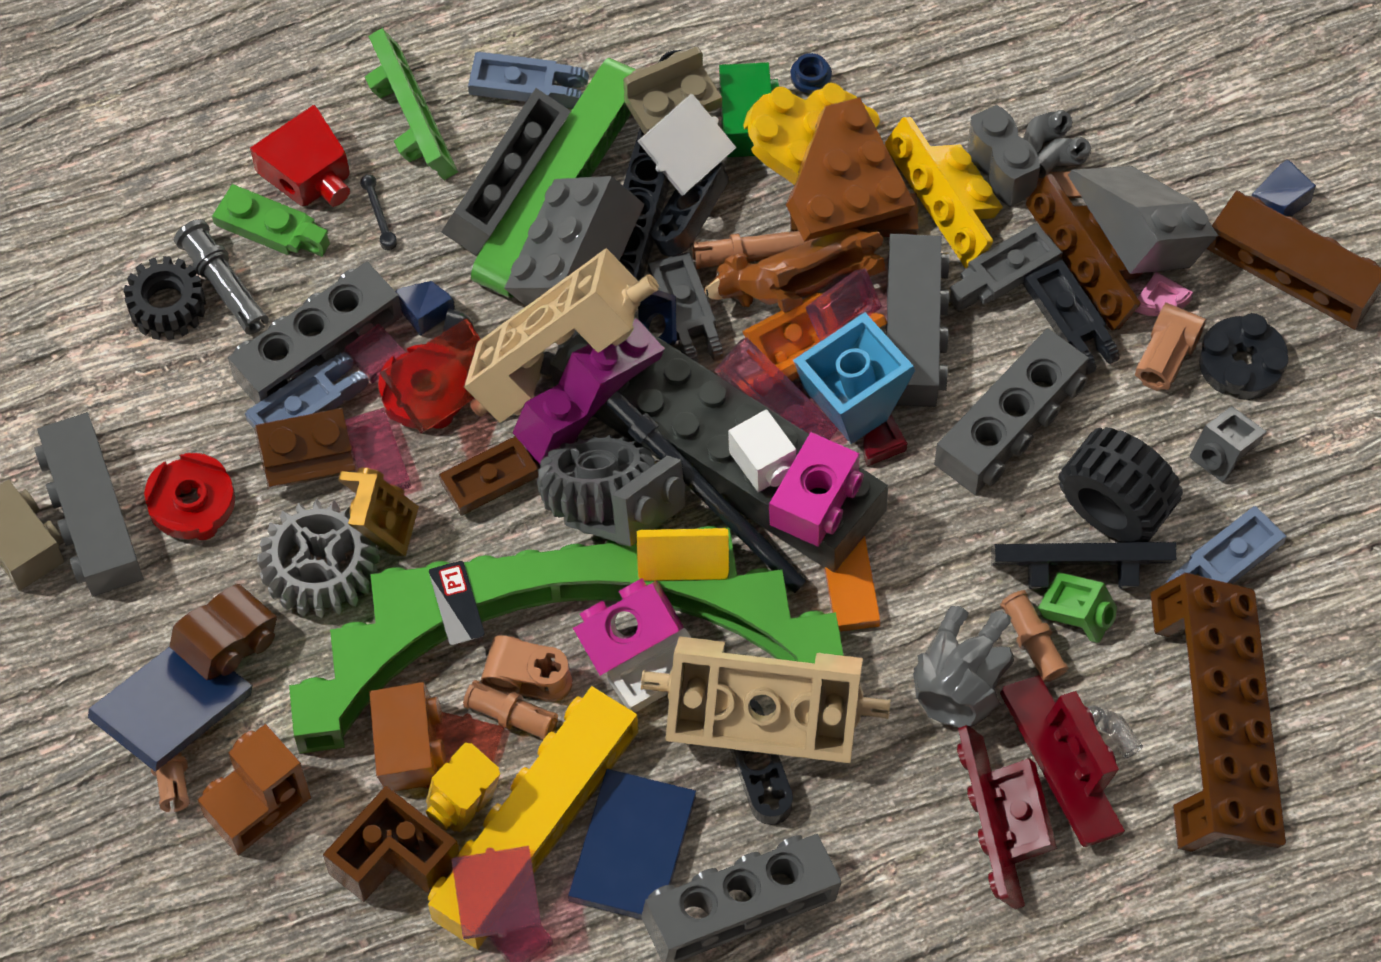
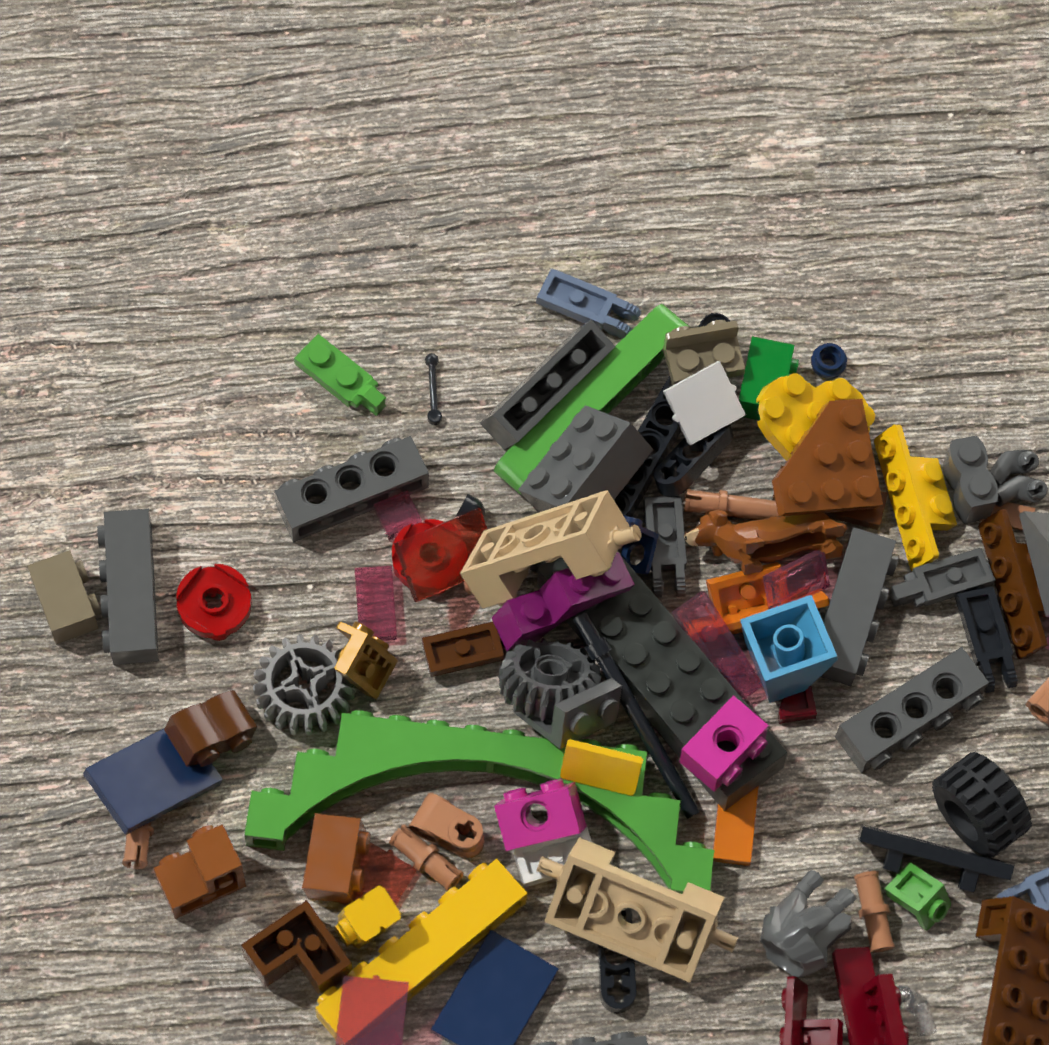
camera: 10 degrees right, 5 degrees up
(162, 277) = (237, 401): black tyre -> none
(212, 263) = (284, 400): dark grey pin -> none
(304, 160) = (383, 329): red torso -> none
(304, 448) = (317, 585): reddish brown plate -> none
(310, 392) = (328, 542): sand blue hinge -> none
(396, 77) = (480, 274): bright green hinge -> none
(424, 305) = (449, 483): dark blue slope -> none
(456, 602) = (405, 756): sticker -> none
(761, 450) = (690, 698): white brick -> none

